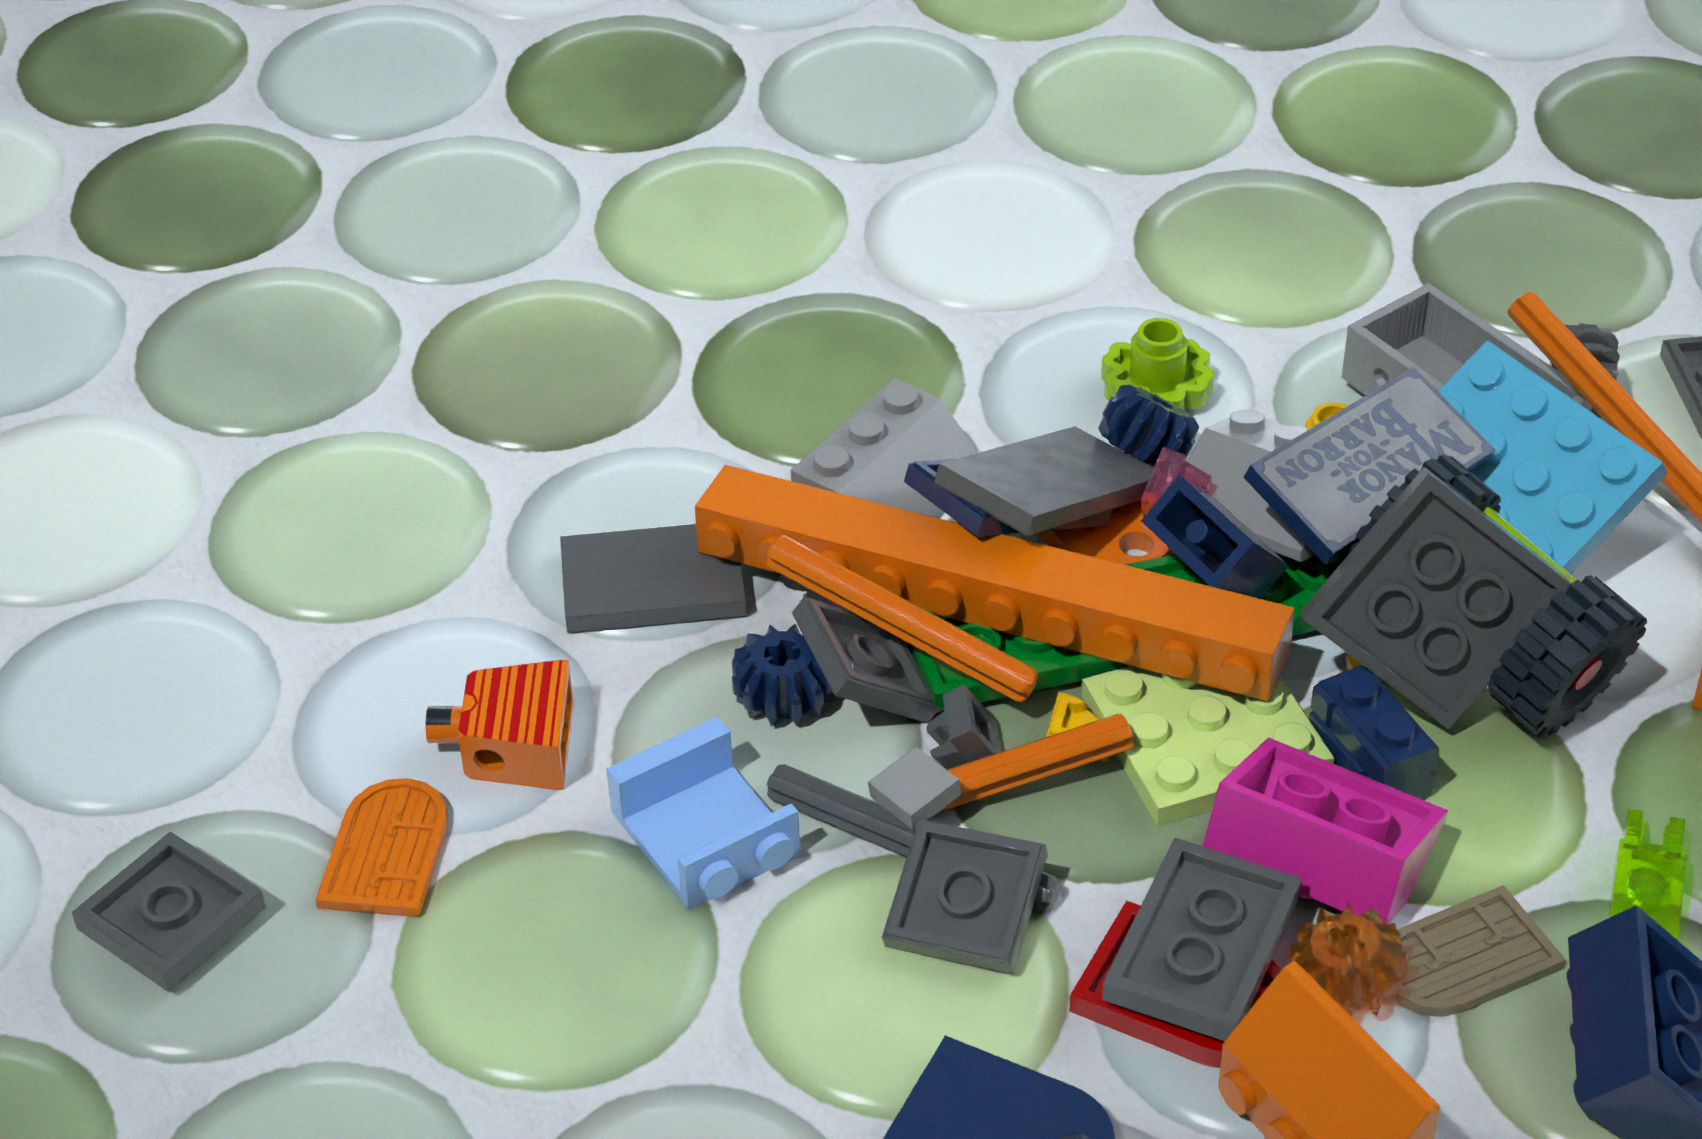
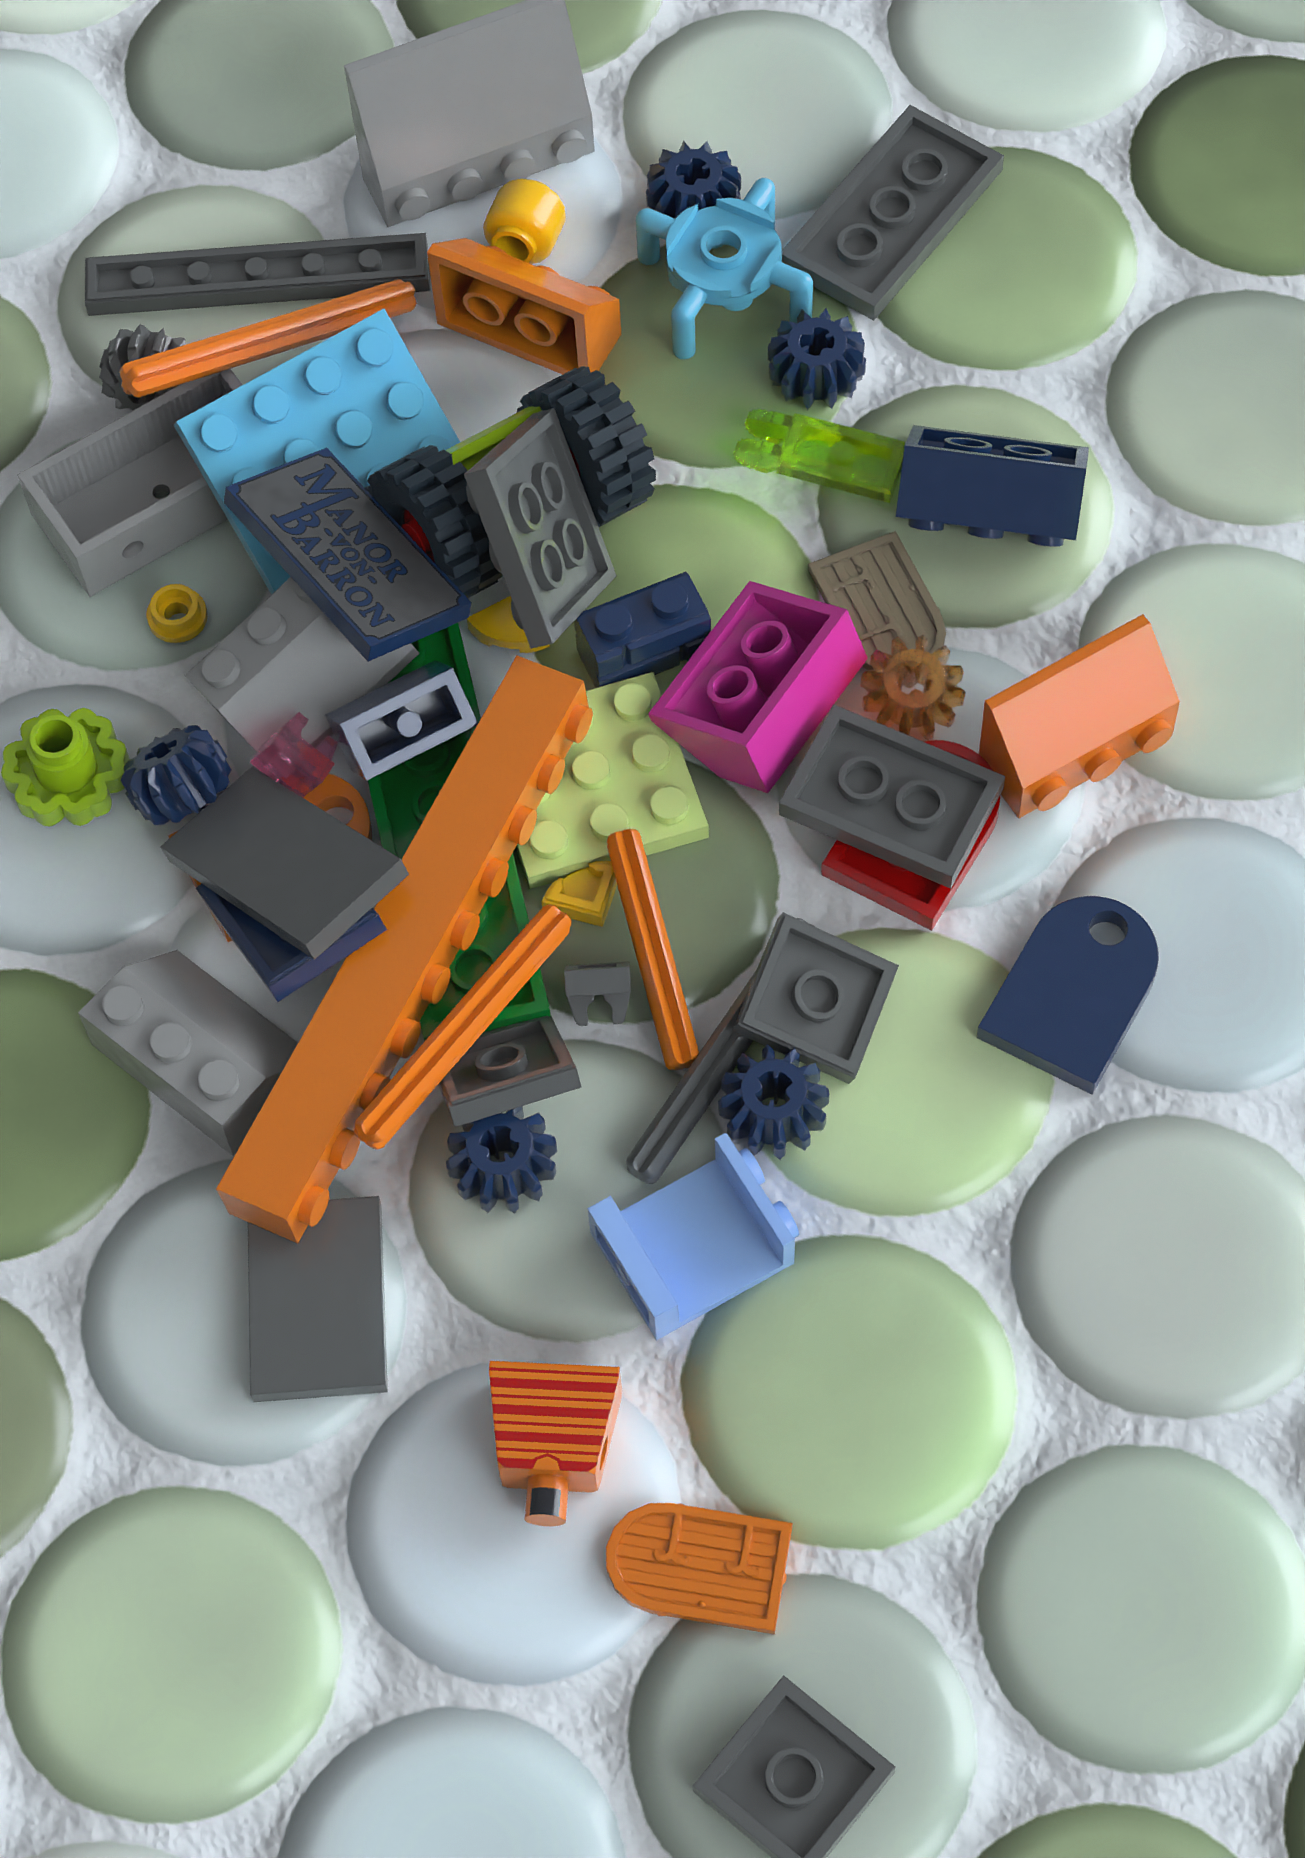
camera: 85 degrees left, 20 degrees up
(847, 867) = (772, 1124): none -> dark blue gear
(914, 787) = (690, 1029): light grey tile -> none

